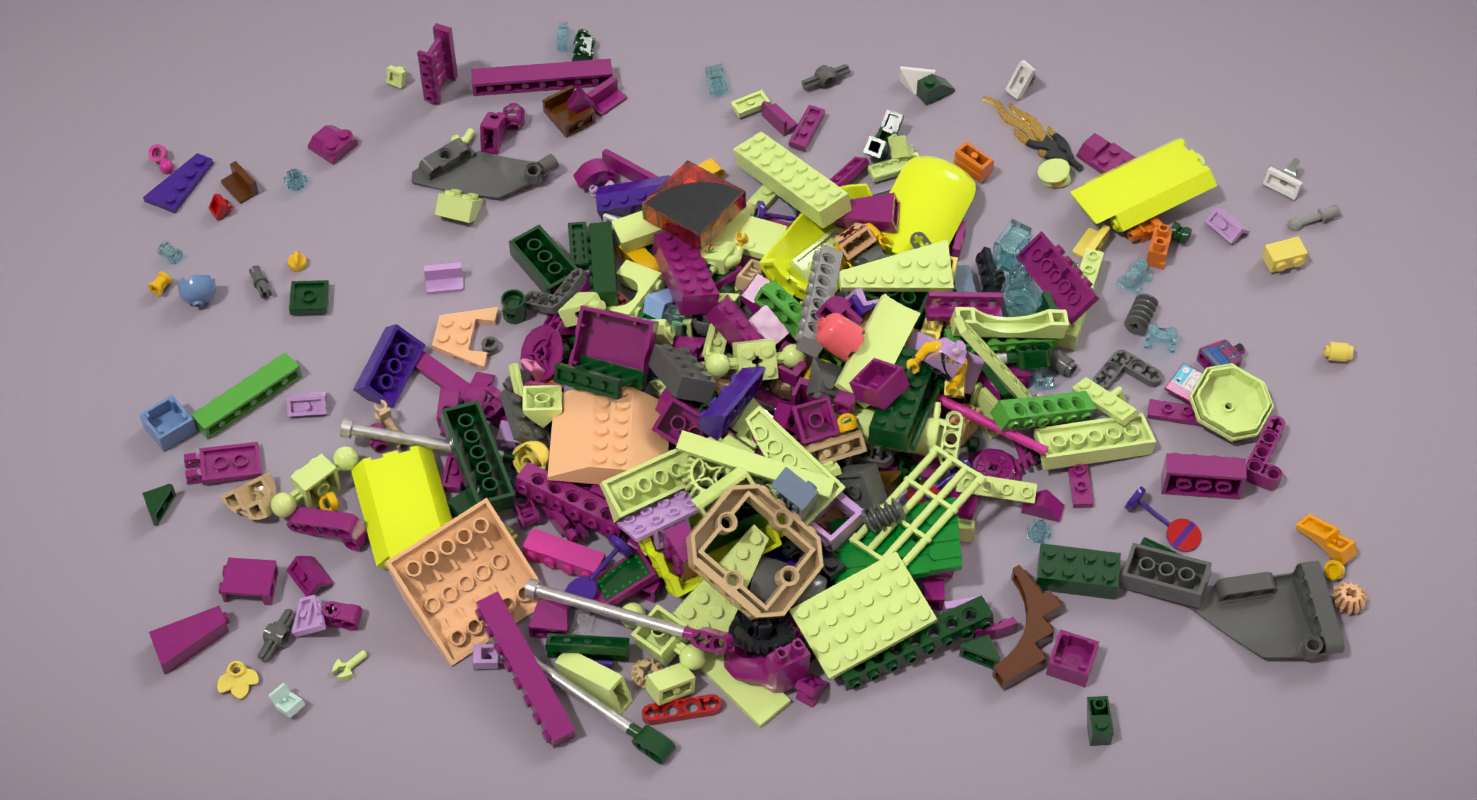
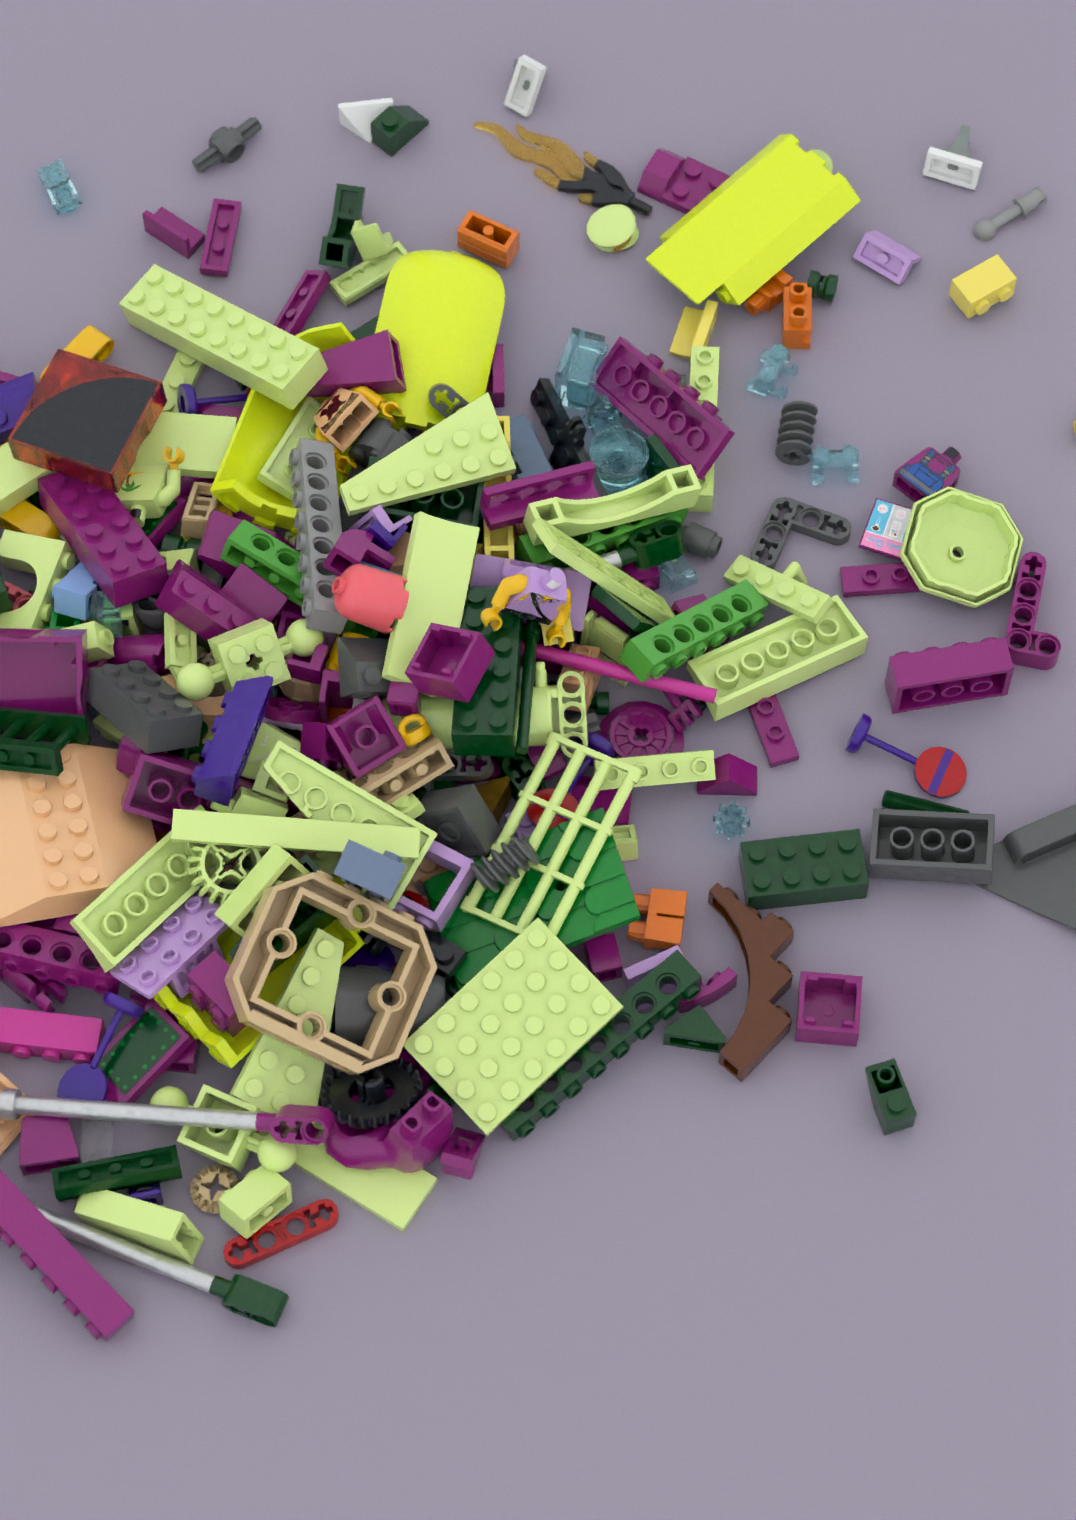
camera: 15 degrees left, 10 degrees up
(749, 103) = (122, 217): yellowish green plate -> none
(979, 579) = (664, 919): none -> orange hips

